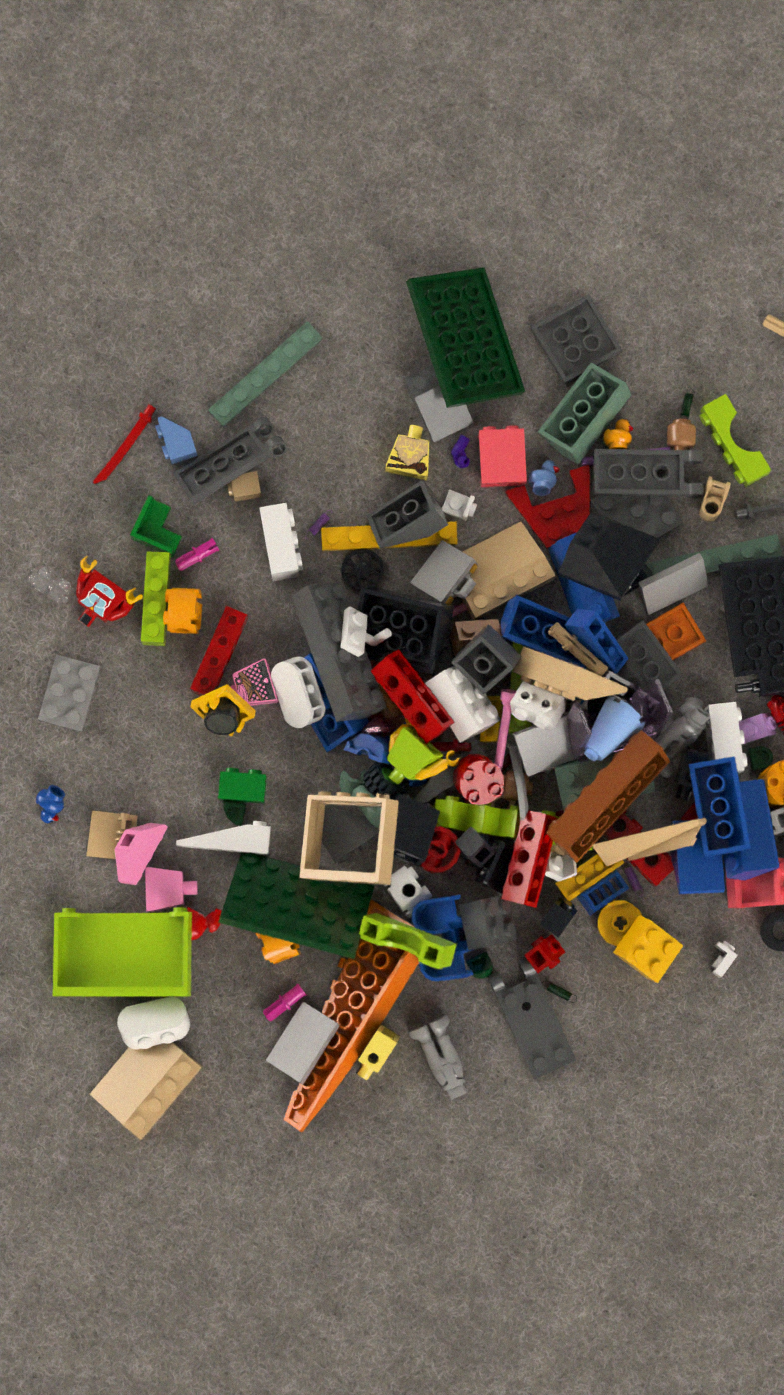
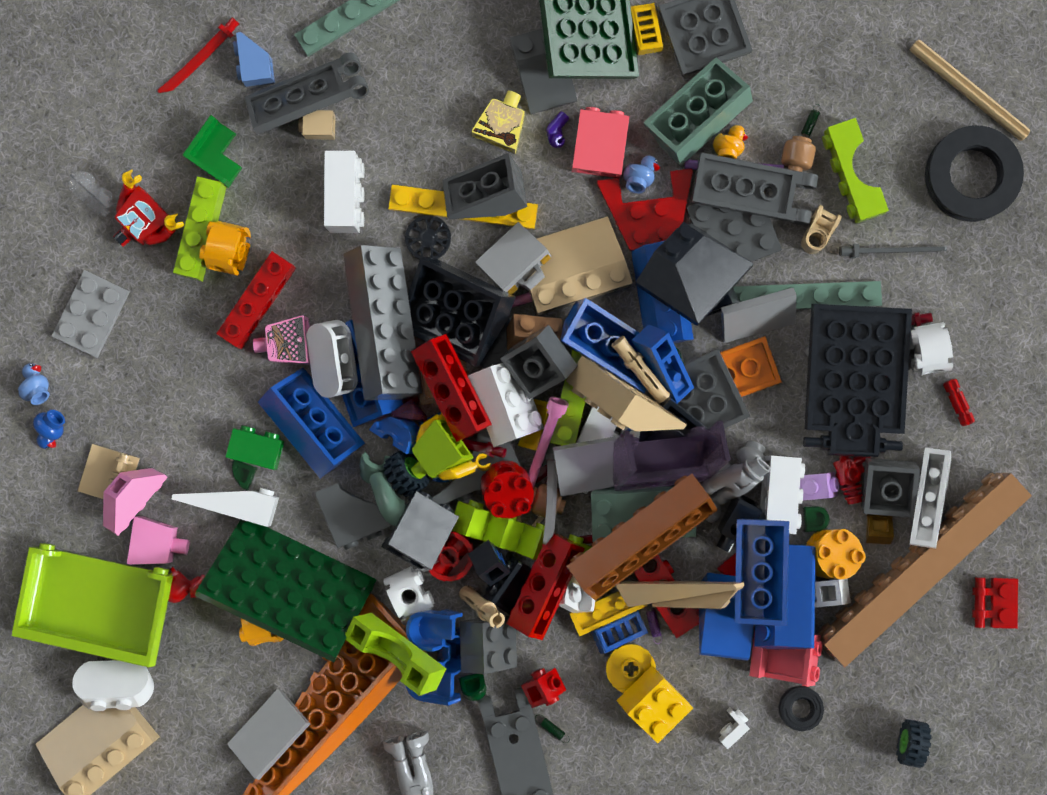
camera: 15 degrees right, 5 degrees up
(31, 768) = (34, 386): none -> medium blue animal
(196, 555) = (252, 189): dark pink axle -> none
(223, 711) = (247, 365): piece -> none
(284, 1003) = (258, 686): dark pink axle -> none
(288, 754) = (310, 422): none -> blue slope
(314, 830) = (317, 521): tan window -> none
(319, 524) = (390, 180): medium lavender piece -> none
(355, 635) = (403, 307): white plate -> none
(380, 1044) = (345, 758): light yellow torso -> none
(459, 505) = (544, 187): white bracket -> none
(479, 889) = (485, 609): none -> tan pin
(530, 364) = (652, 47): none -> yellow slope
(537, 706) = (584, 424): white brick -> none
(559, 916) = (566, 651): black brick -> none
(612, 729) = (660, 465): light blue cone -> none

